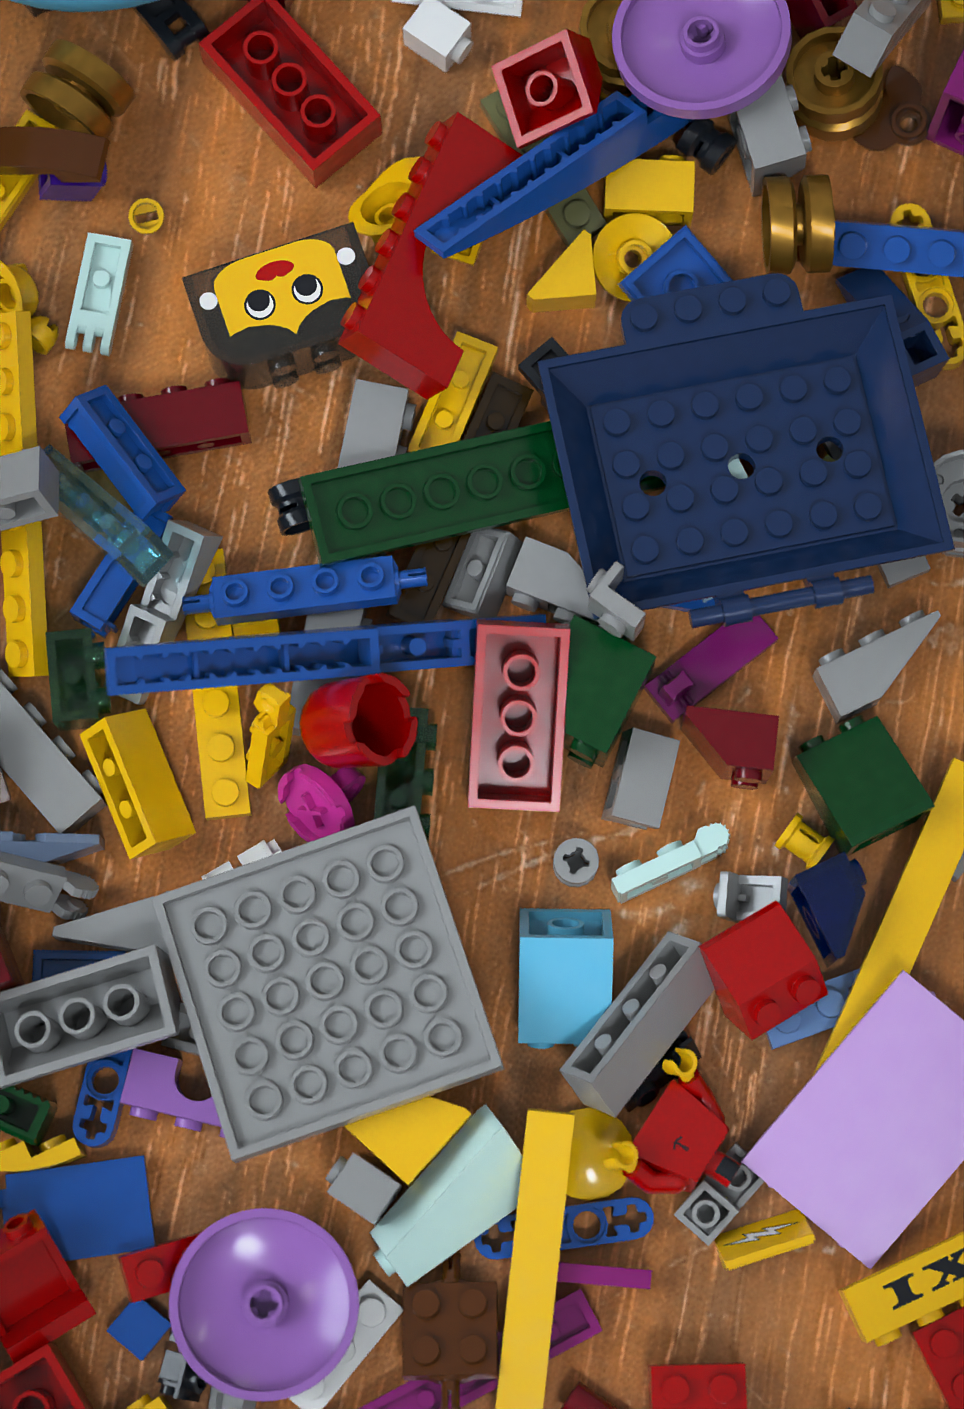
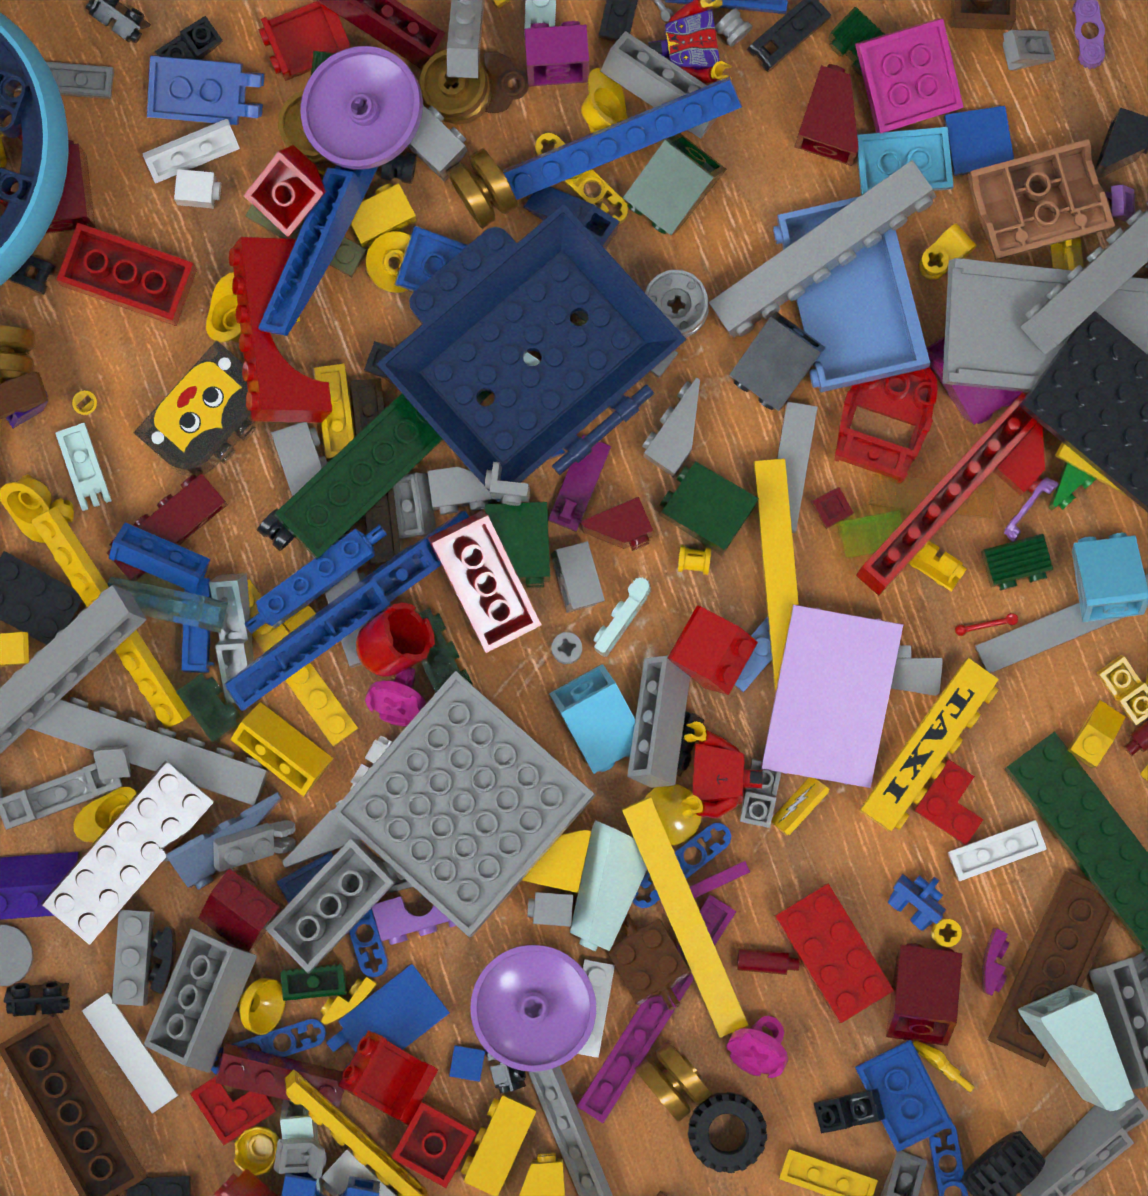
camera: 30 degrees left, 5 degrees up
(151, 1269) = (457, 1023): red plate -> none
(270, 734) = (345, 676): yellow hinge -> none
(568, 282) = (363, 299): yellow slope -> none
(743, 895) = (676, 612): light grey bracket -> none
(830, 903) = (729, 588): clear blue slope -> none

